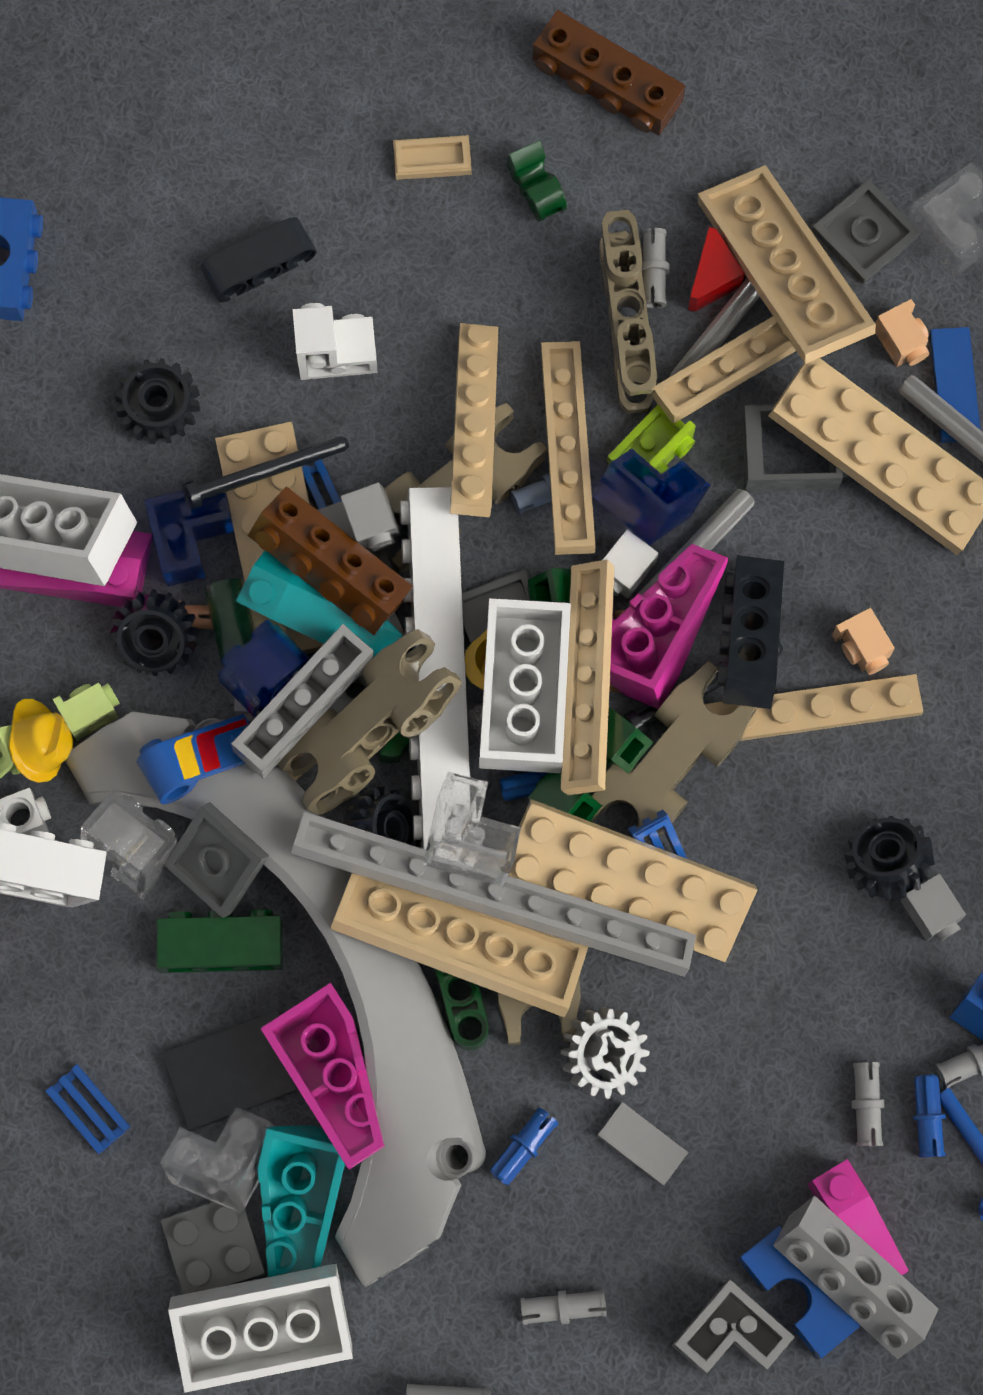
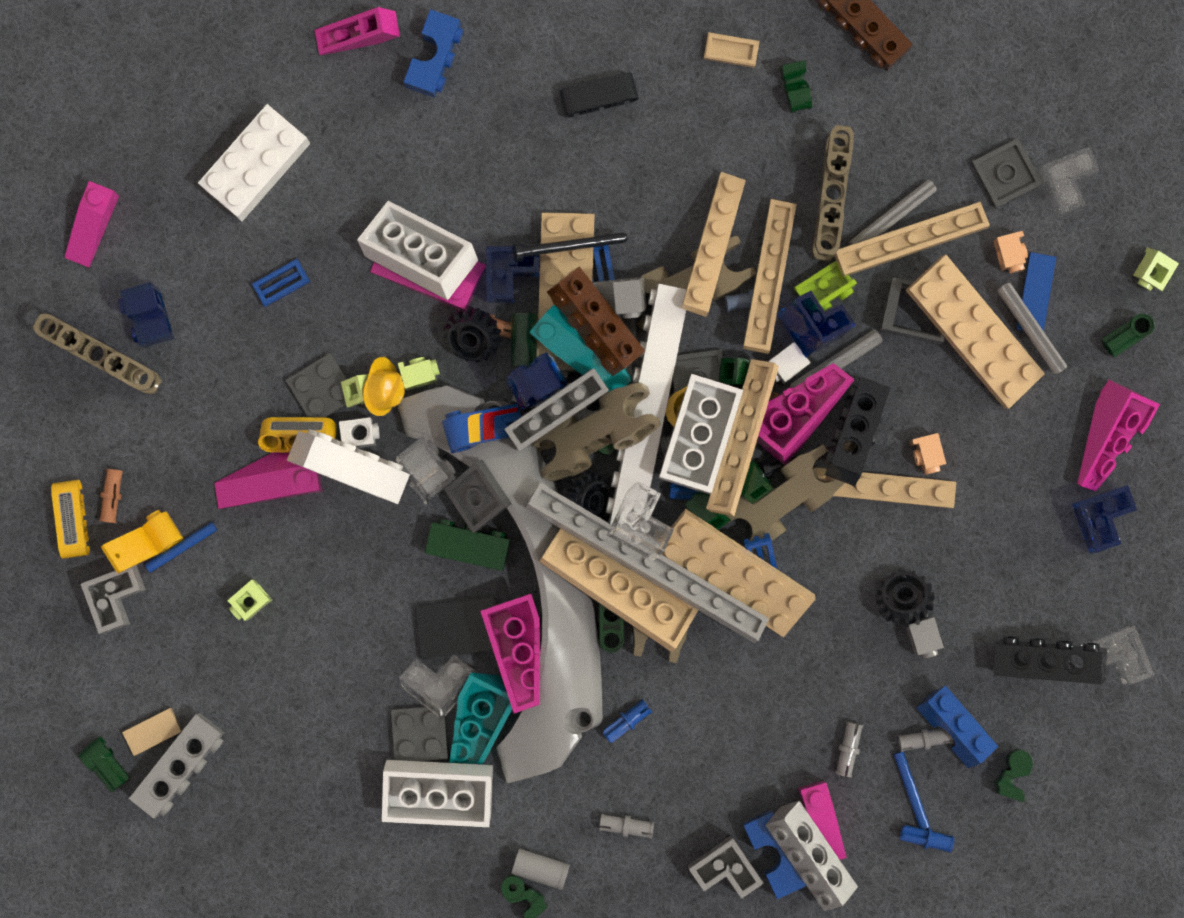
camera: 15 degrees right, 10 degrees up
(65, 1082) = (371, 649): blue tile -> none
(153, 381) = (510, 162): black gear -> none
(333, 346) = (634, 168): white brick -> none
(602, 1051) = (691, 675): gear -> none
(642, 1144) = (701, 738): light grey tile -> none
(654, 267) = (859, 164): light grey pin -> none
(716, 274) = (898, 179): red slope -> none
(786, 264) = (945, 187): tan plate -> none
(929, 1116) = (885, 766): blue axle -> none

